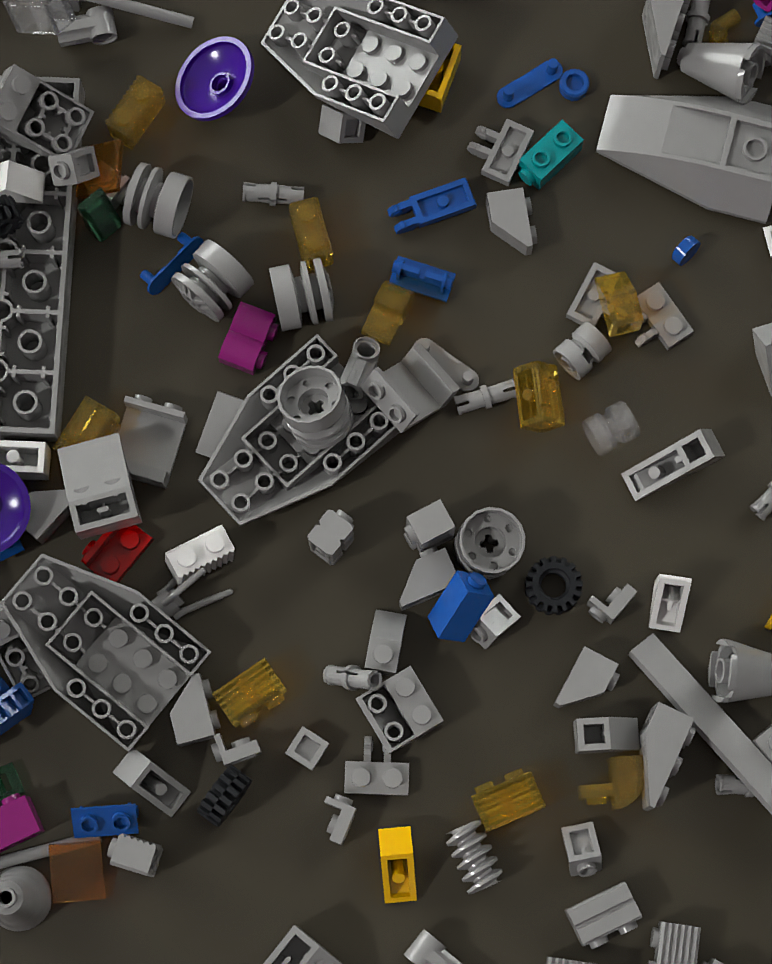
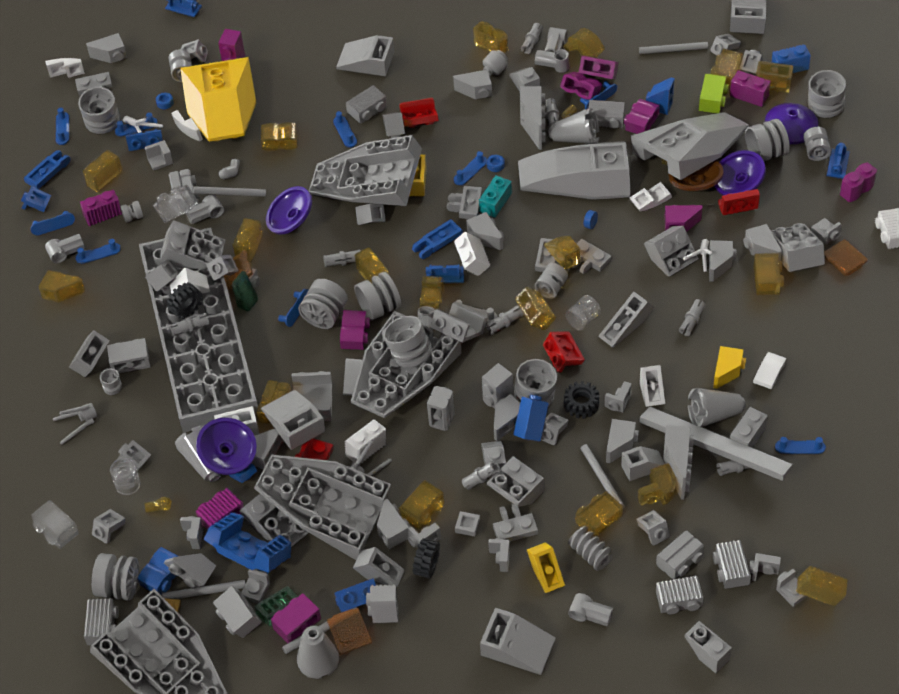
camera: 15 degrees left, 25 degrees down
(151, 198) = (275, 274): light grey wheel -> none
(475, 257) = (472, 253): none -> white brick
(537, 732) = (600, 473): none -> light grey bar
(556, 485) = (562, 350): none -> red bracket

